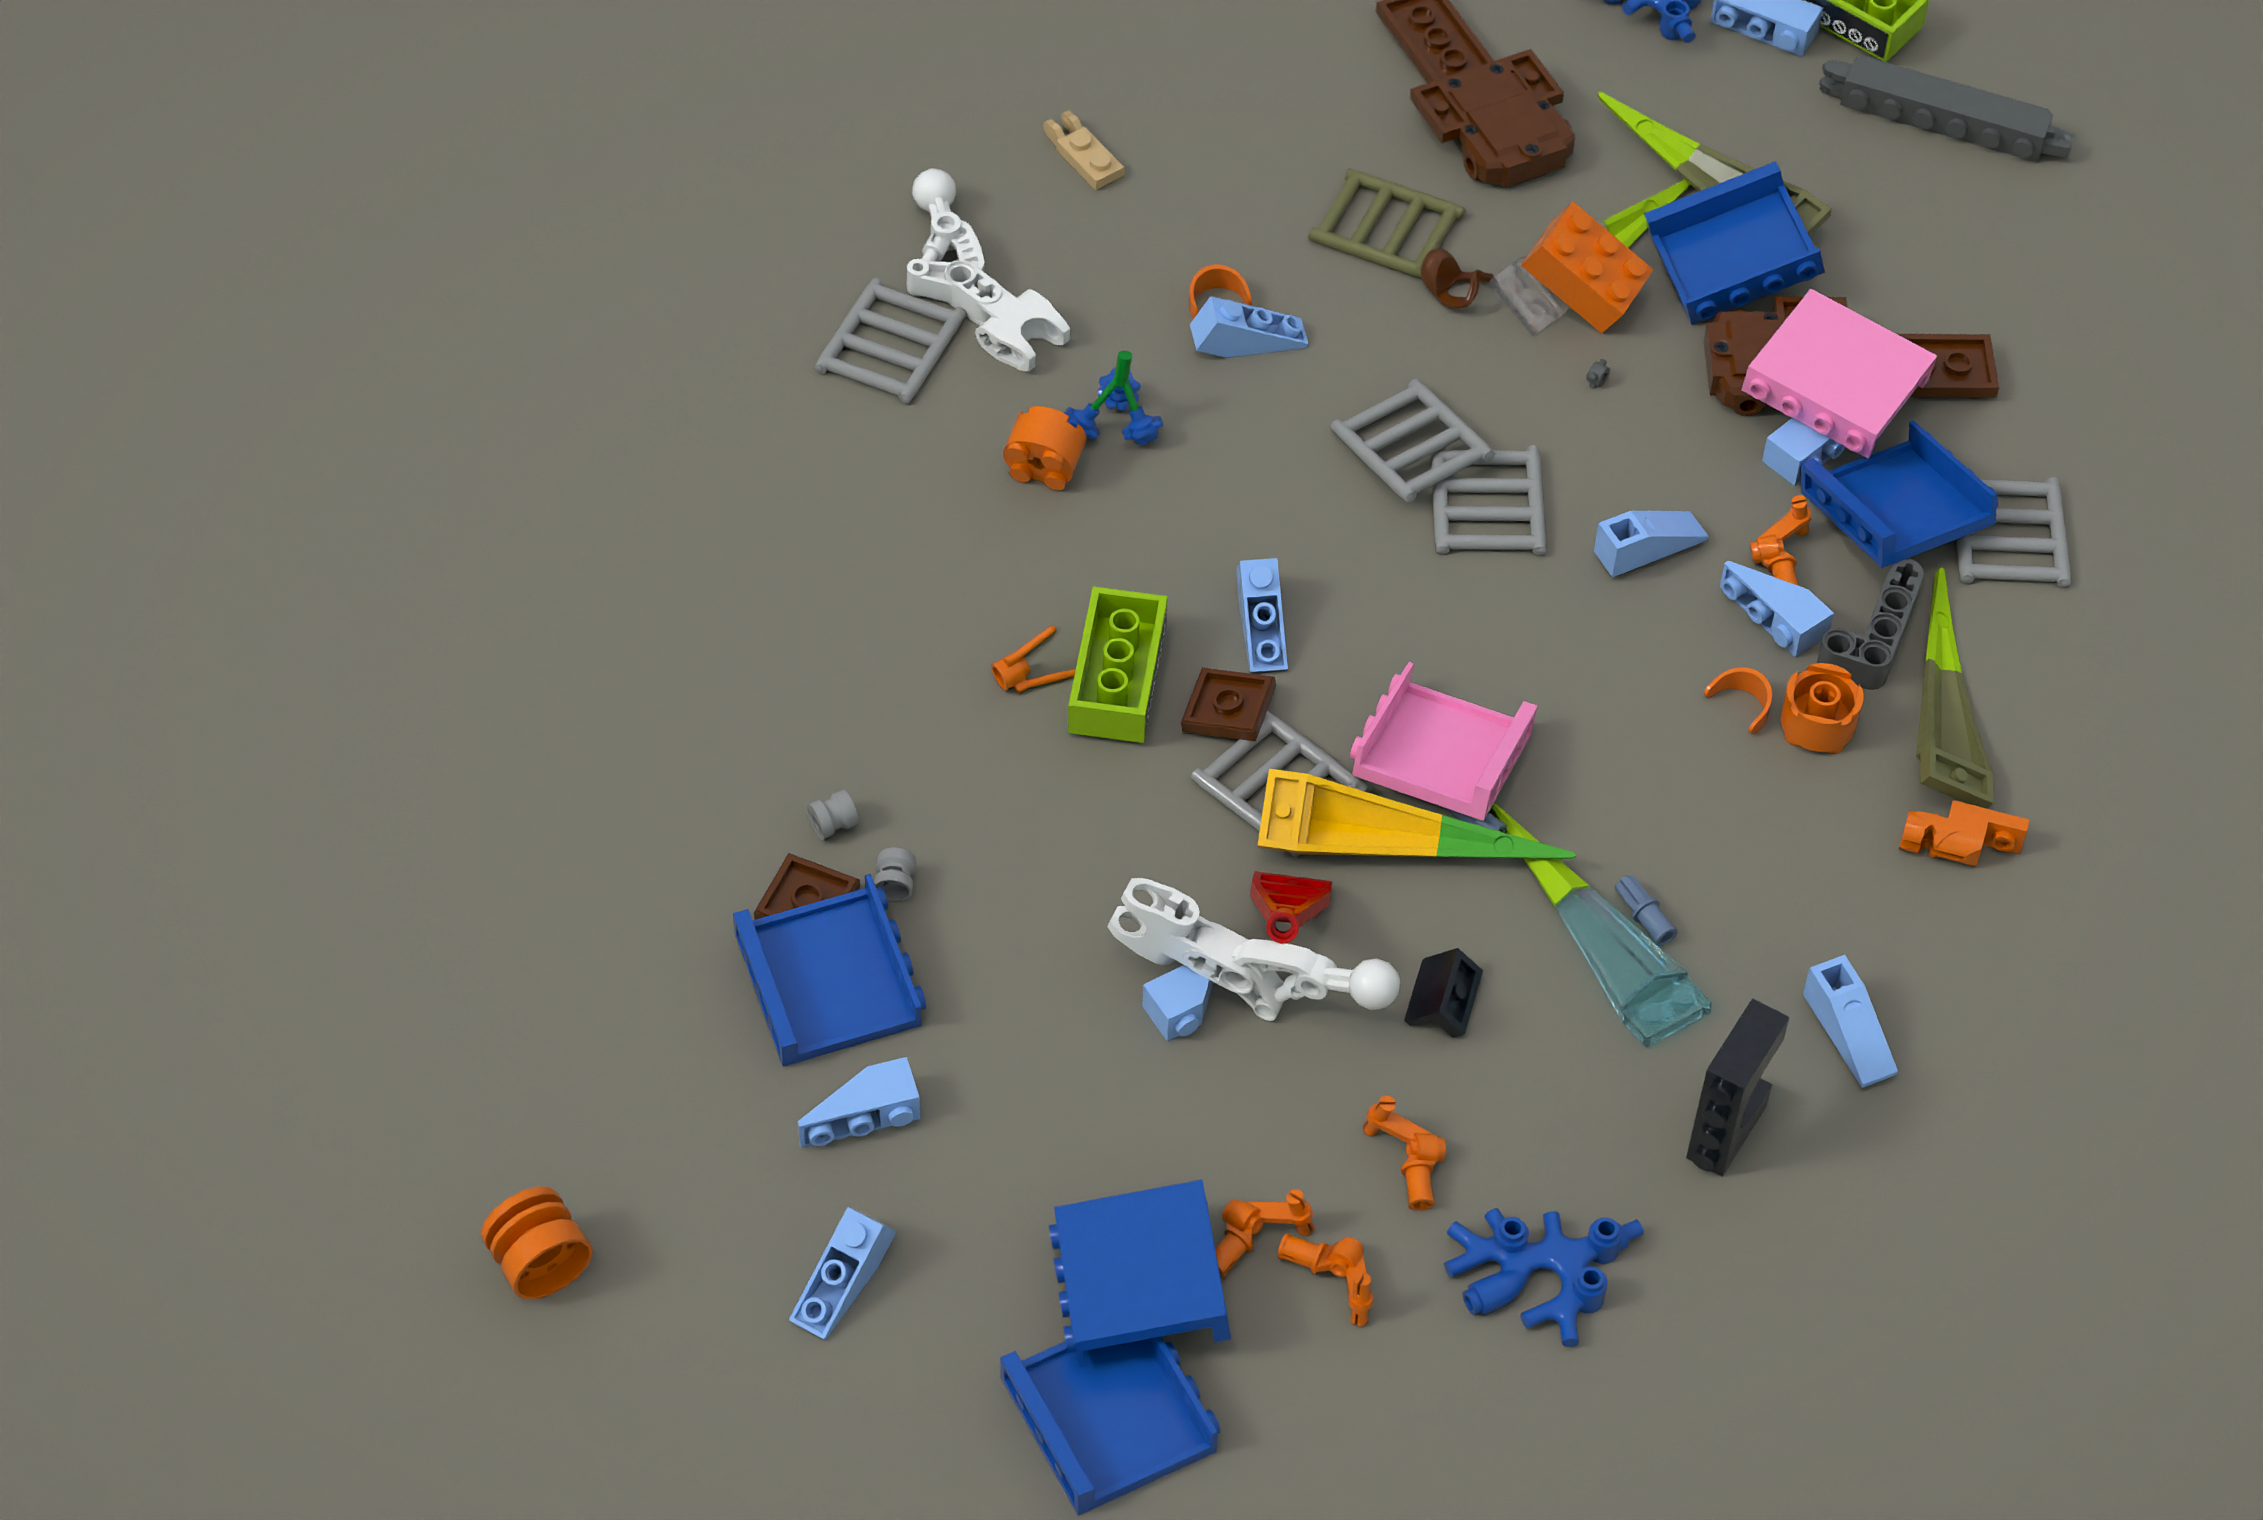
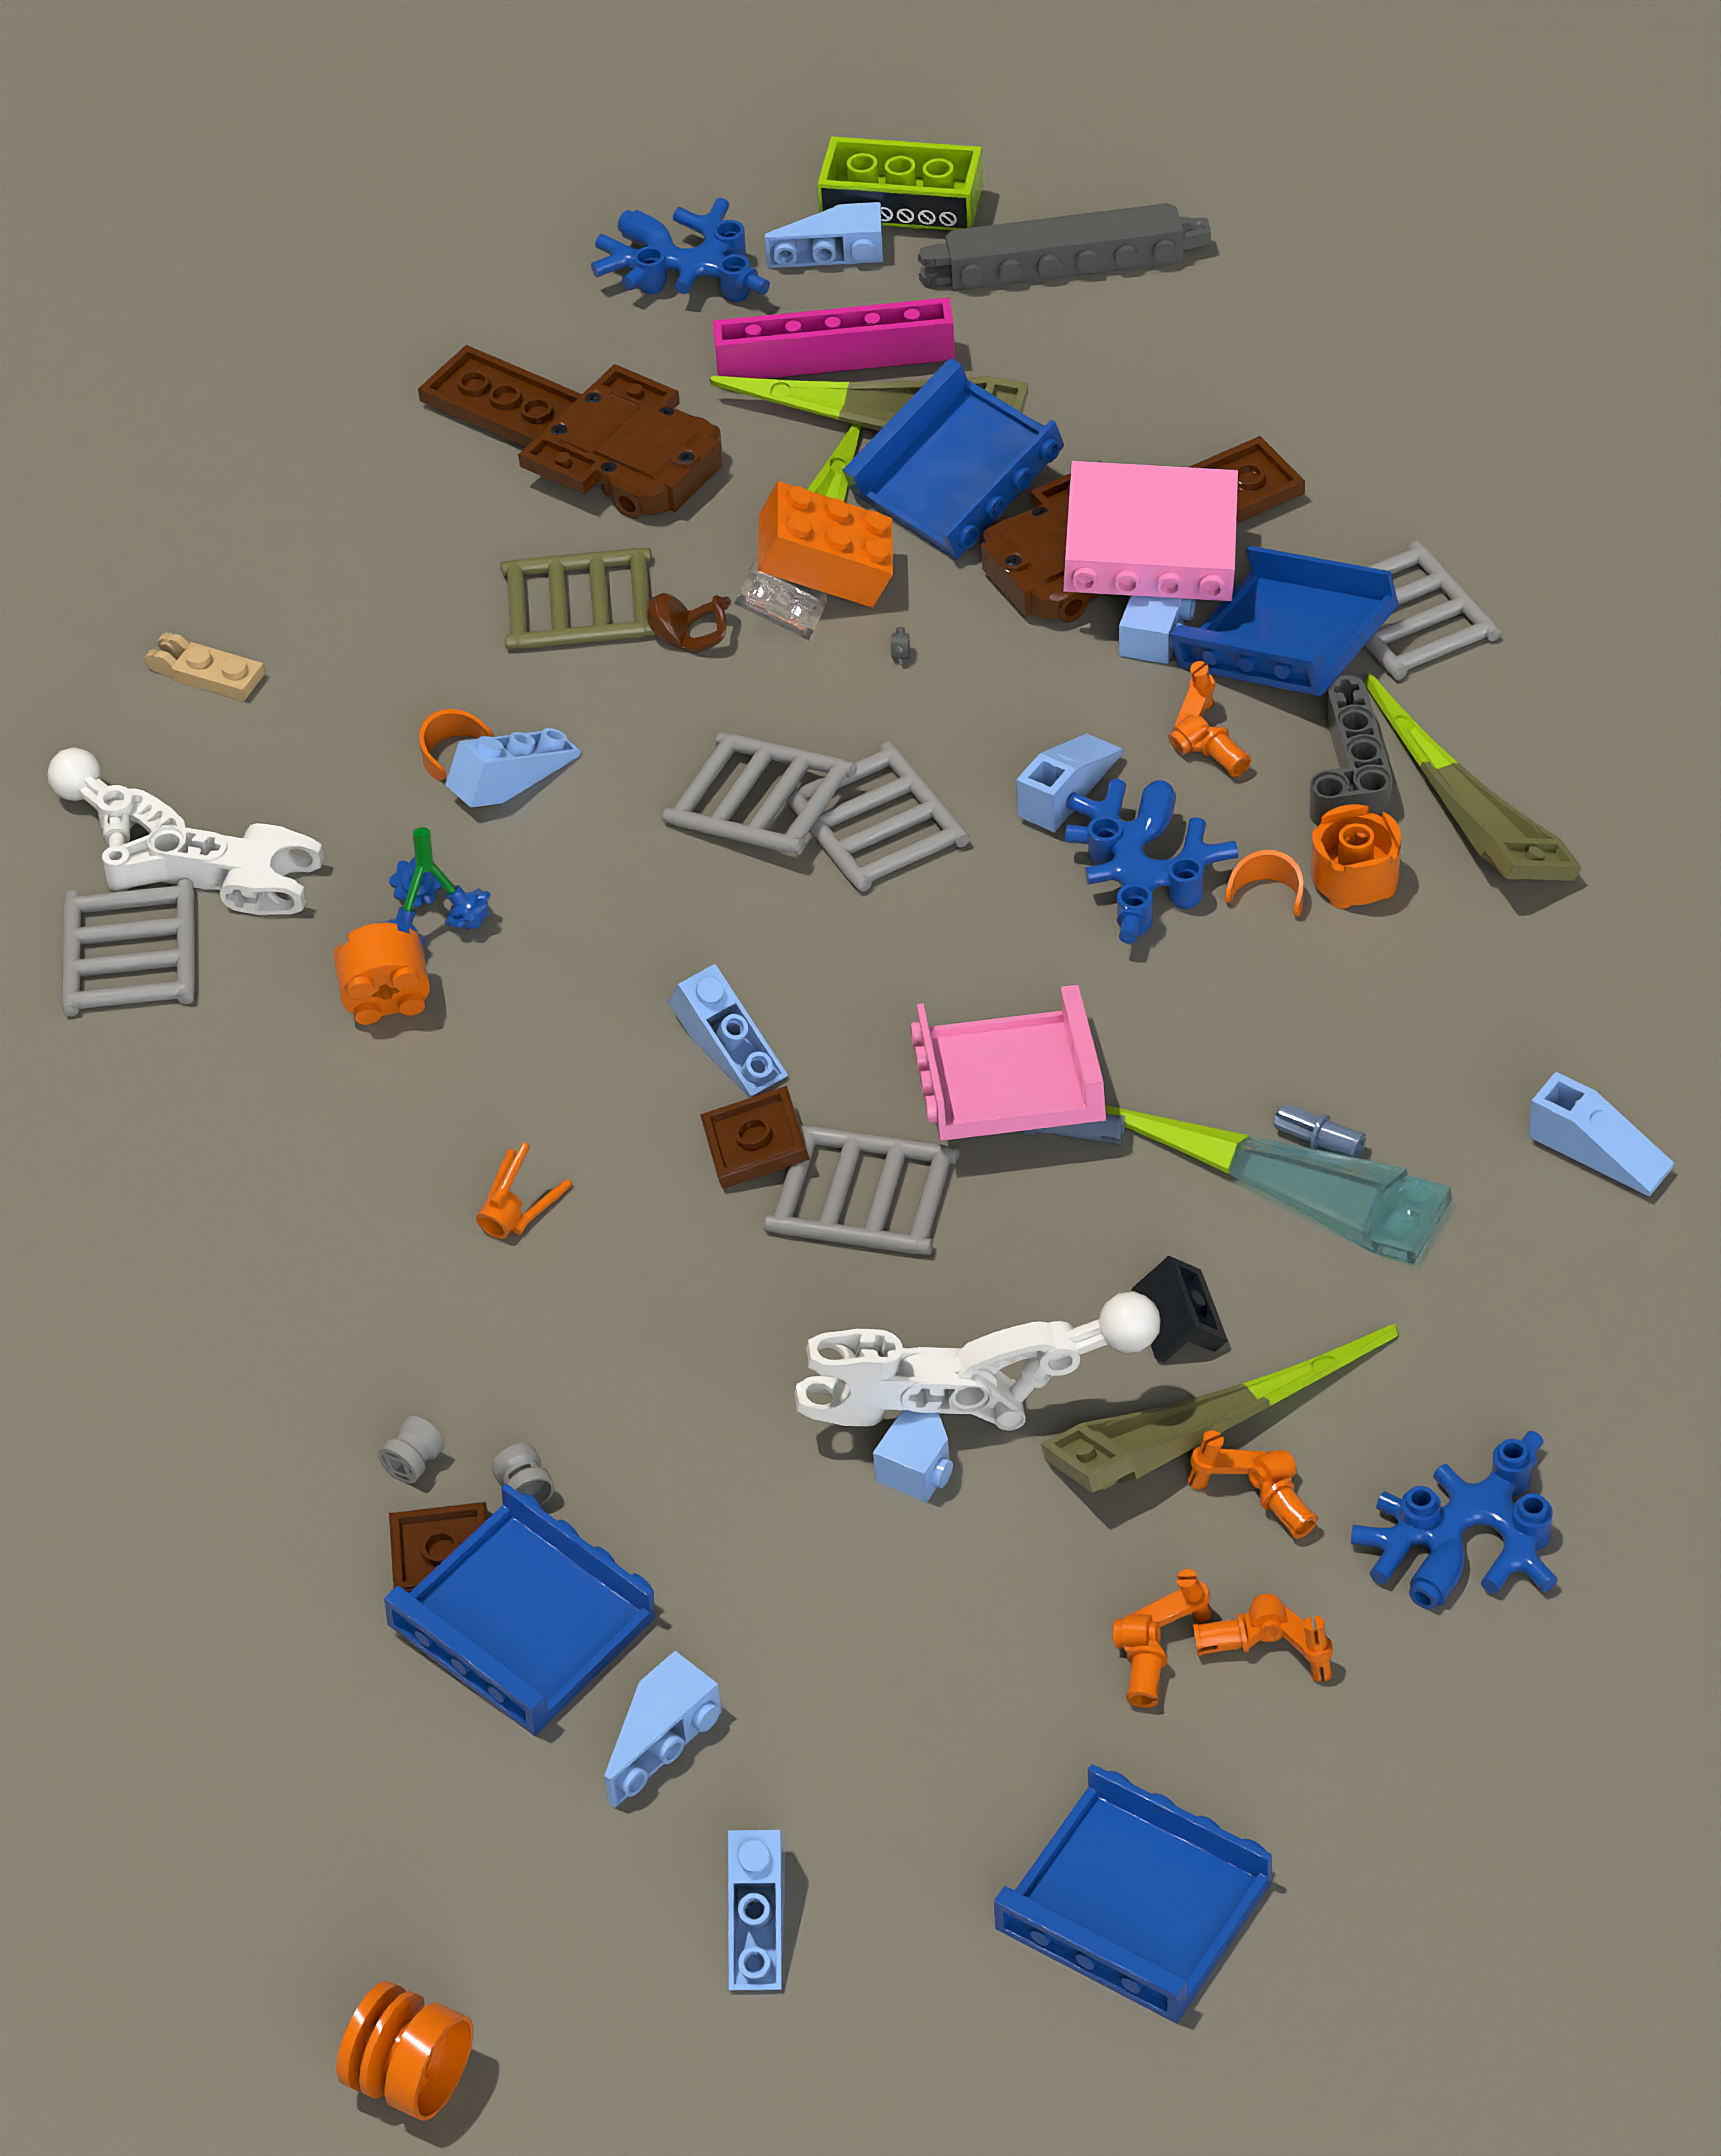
camera: 25 degrees left, 5 degrees down
(1117, 664) = (615, 1151): lime brick -> none
(1138, 1267) = (1074, 1735): blue panel -> none
(1288, 901) = (964, 1294): red plate -> none
(1329, 818) = (945, 1194): yellow plate -> none
(1350, 1077) = (1136, 1443): none -> olive plate
(1647, 613) = (1119, 855): none -> blue plant
(1712, 104) = (835, 339): none -> dark pink brick
(1733, 1090) = (1557, 1245): black arch -> none
(1782, 608) = (1242, 781): light blue slope -> none
(1963, 832) = (1572, 908): orange plate -> none

